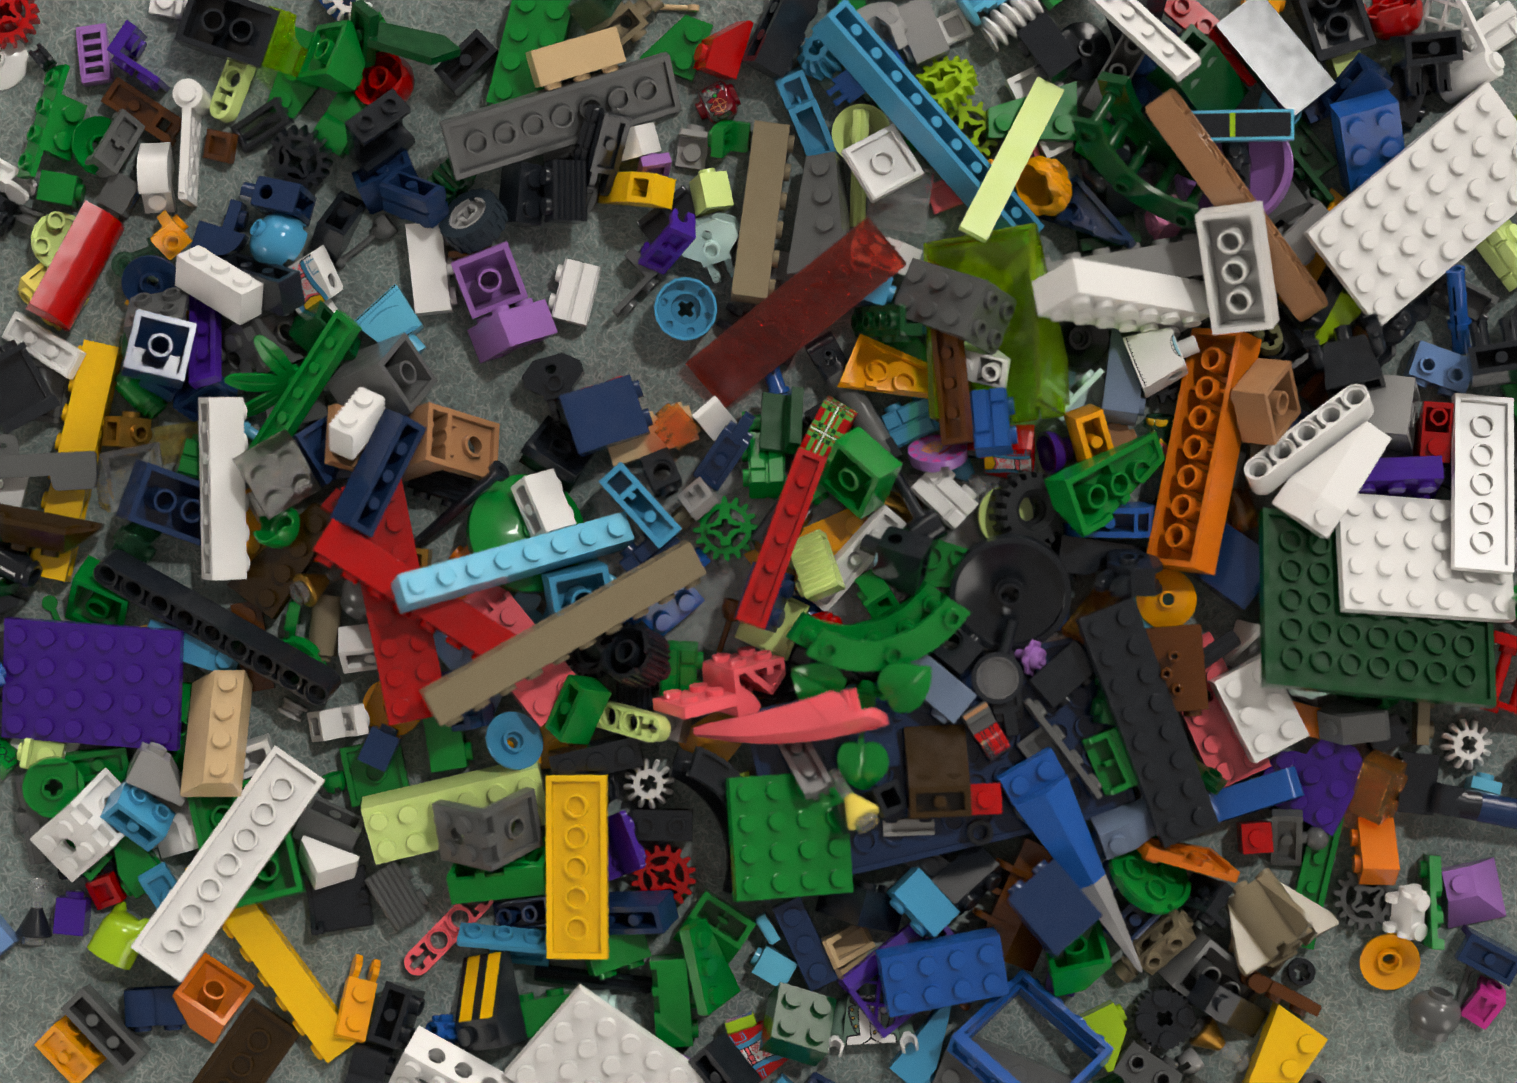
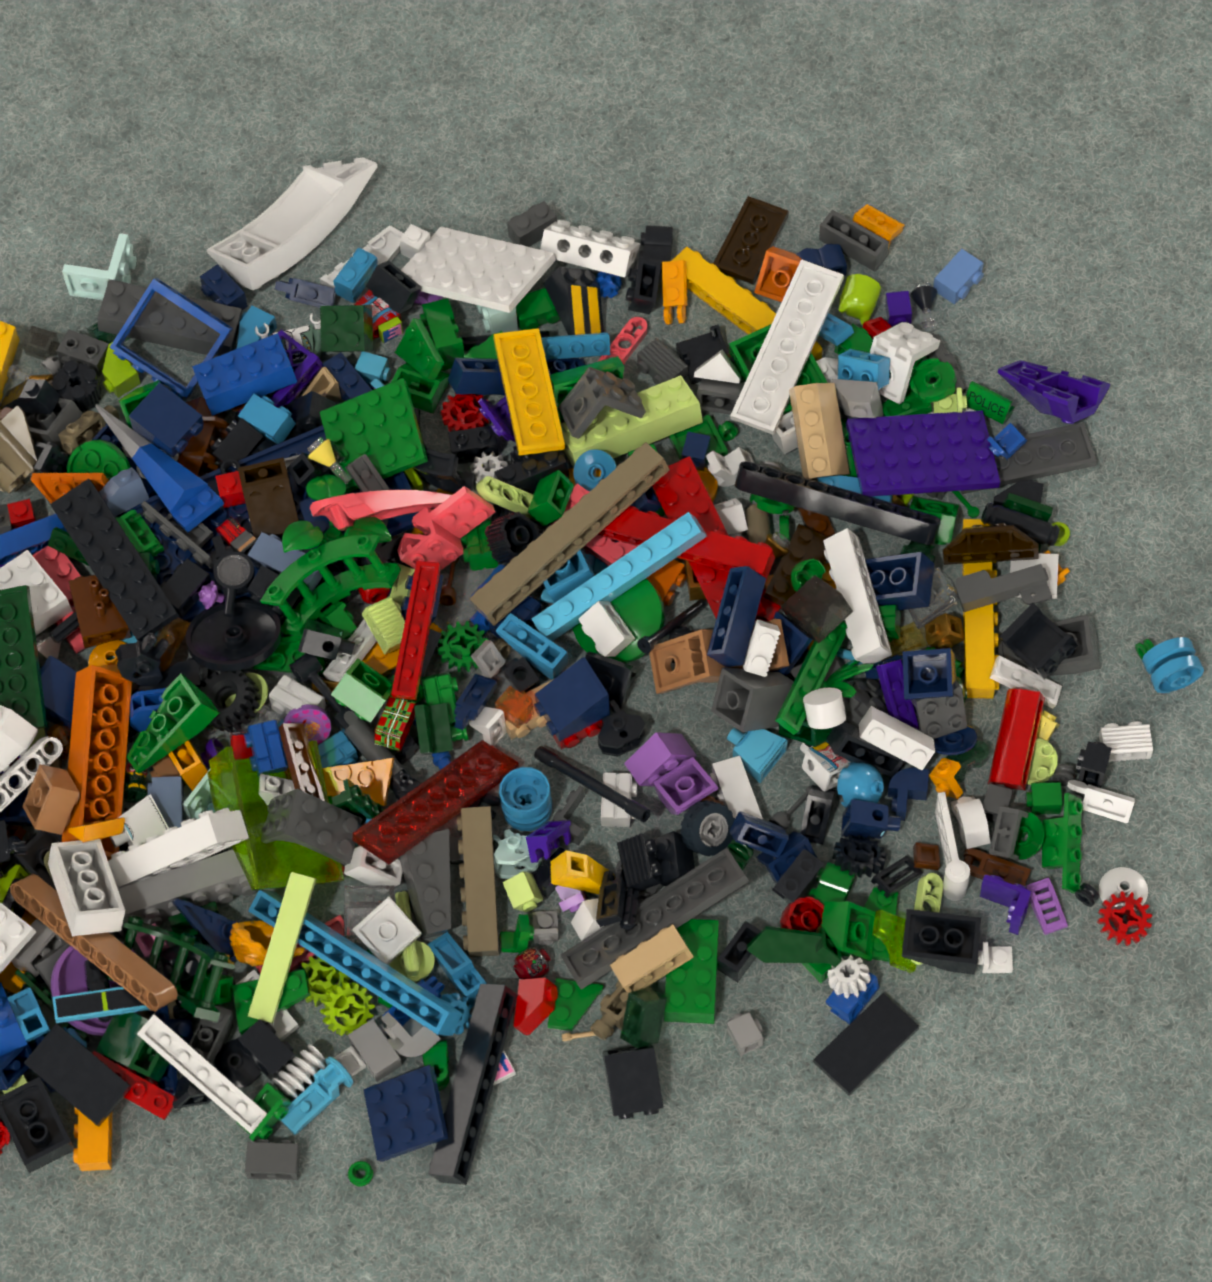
camera: 170 degrees right, 25 degrees down
(297, 329) = (824, 708): none -> white piece
(562, 261) = (630, 806): none -> black piece
(1214, 348) = (98, 829): none -> light orange slope
(1320, 138) = (28, 1014): none -> dark azure brick

